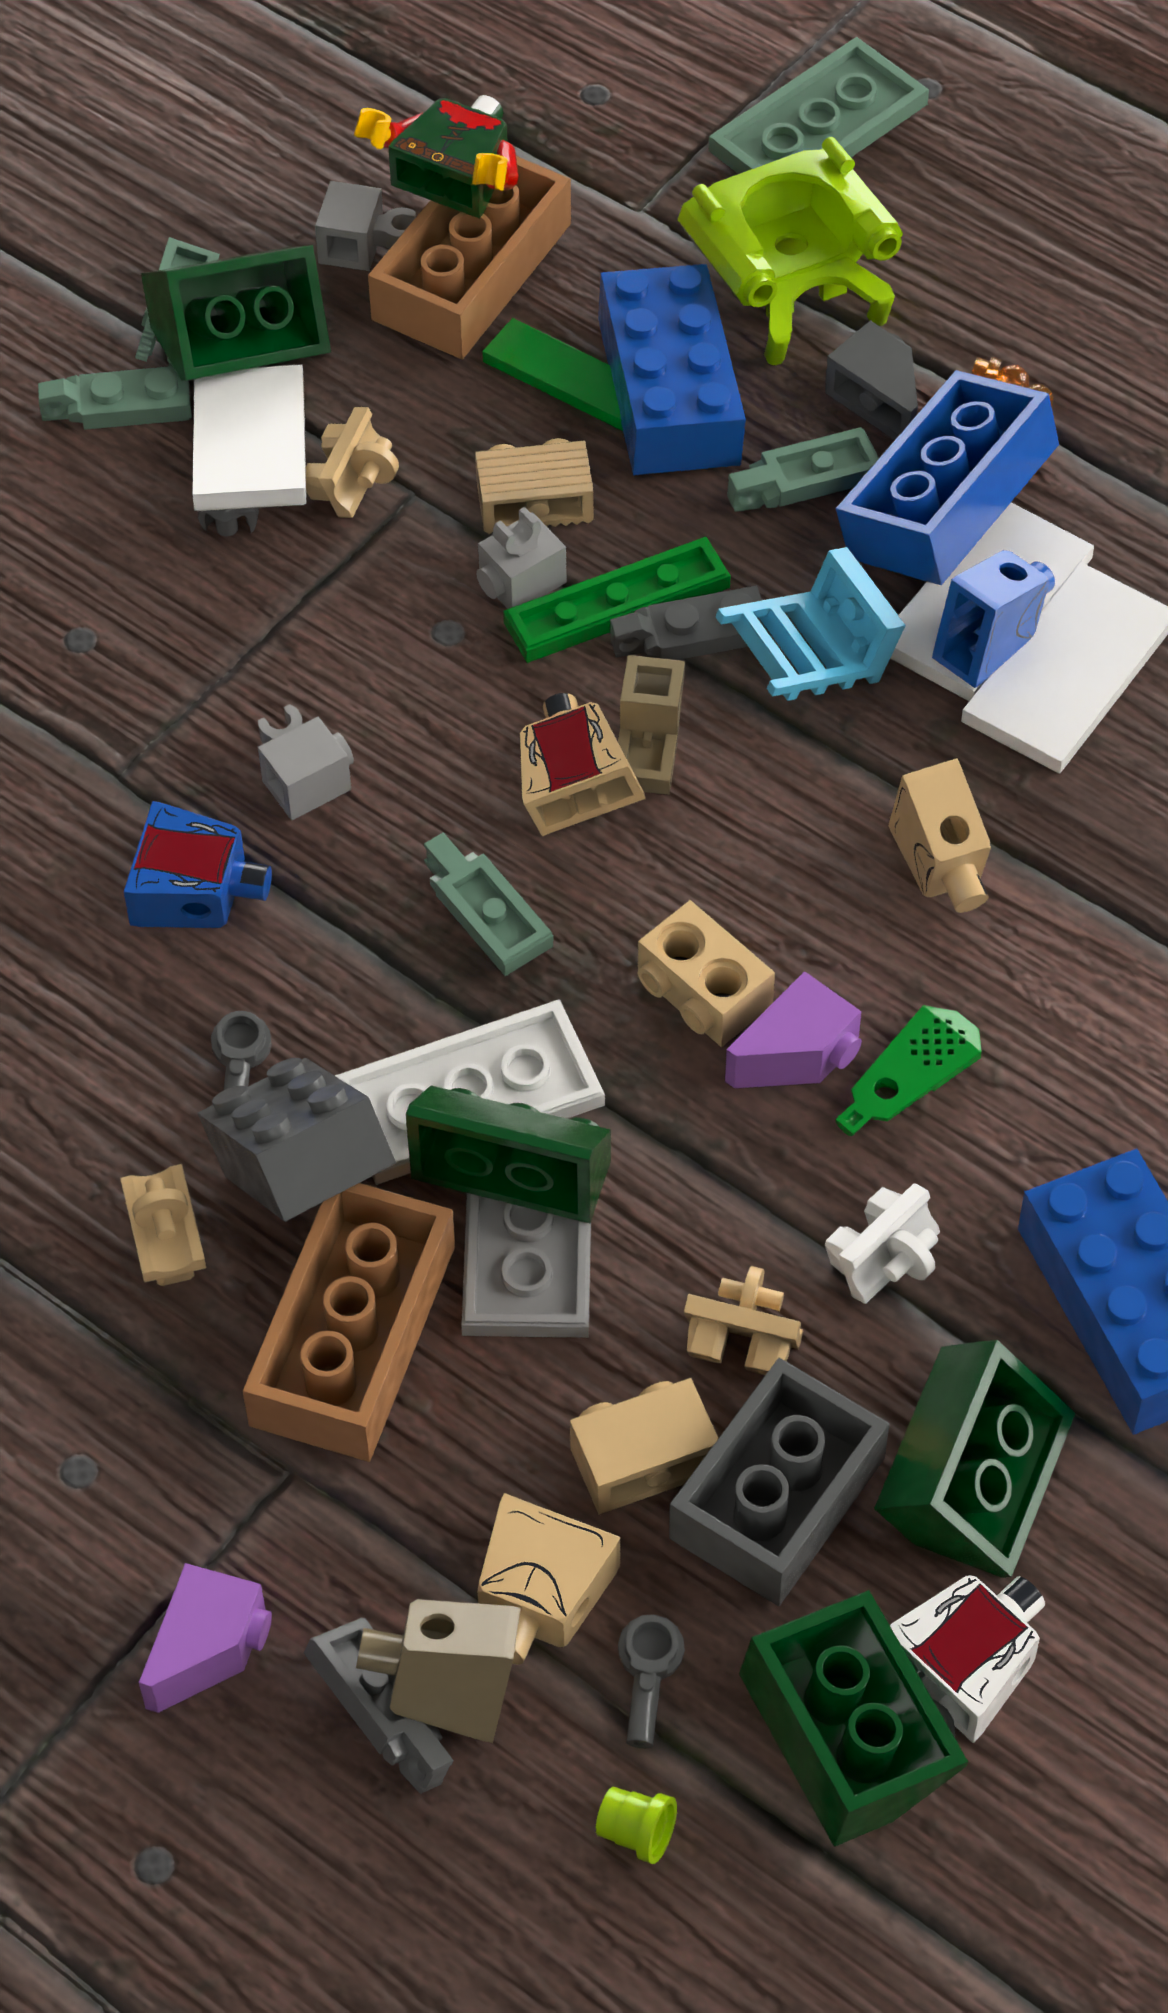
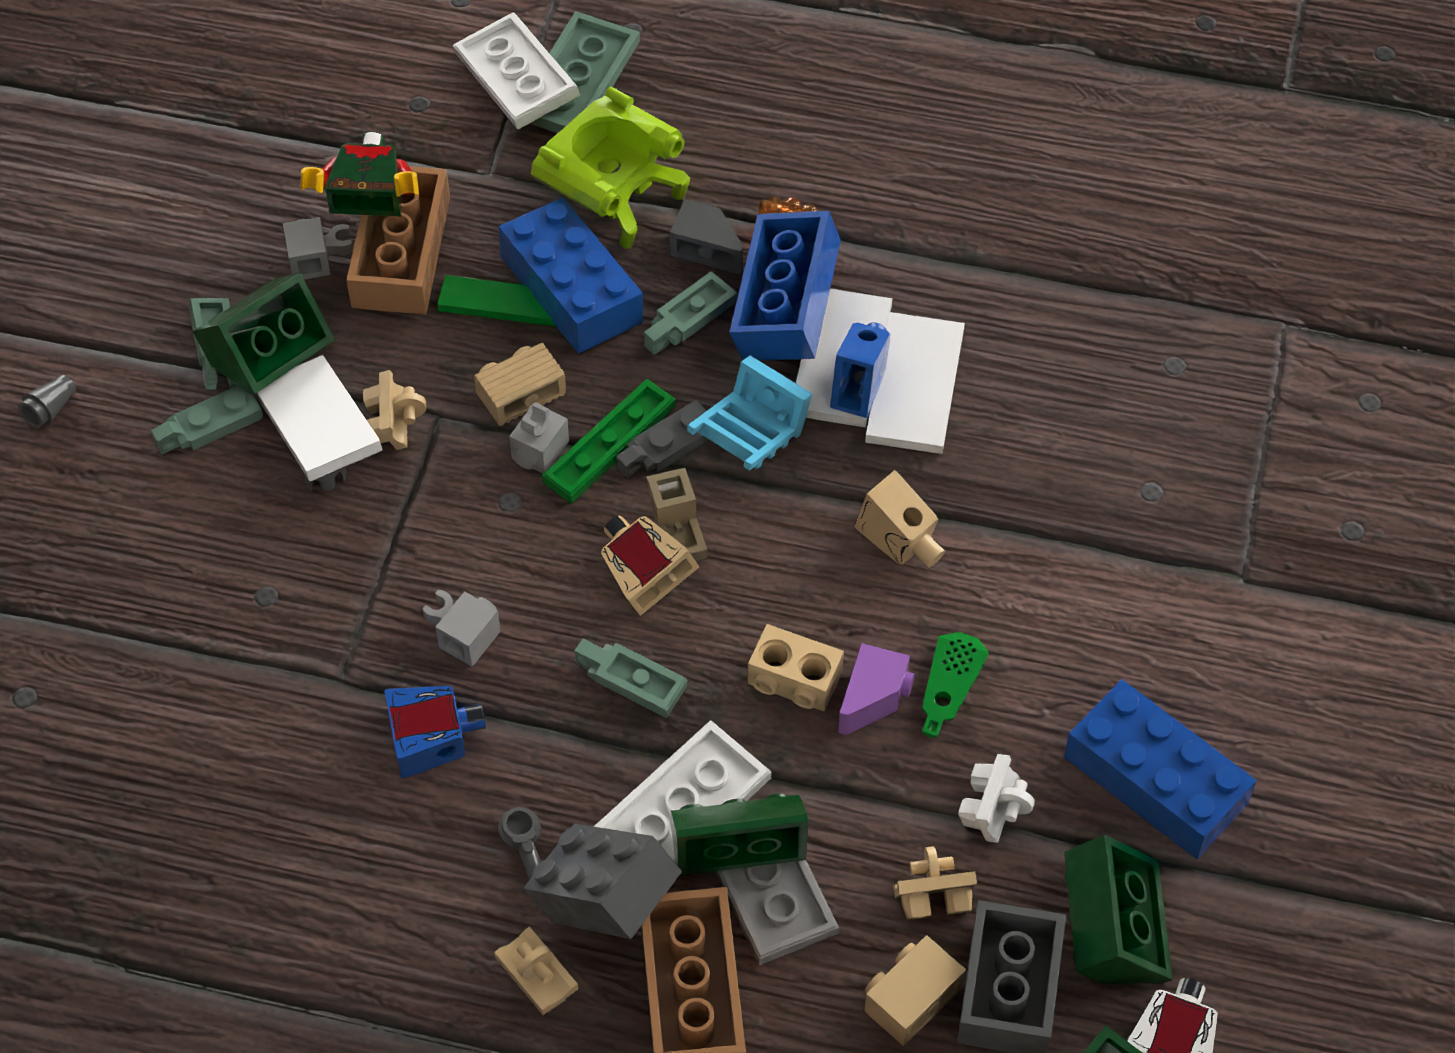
camera: 25 degrees left, 0 degrees up
(737, 87) = (516, 70): none -> white tile

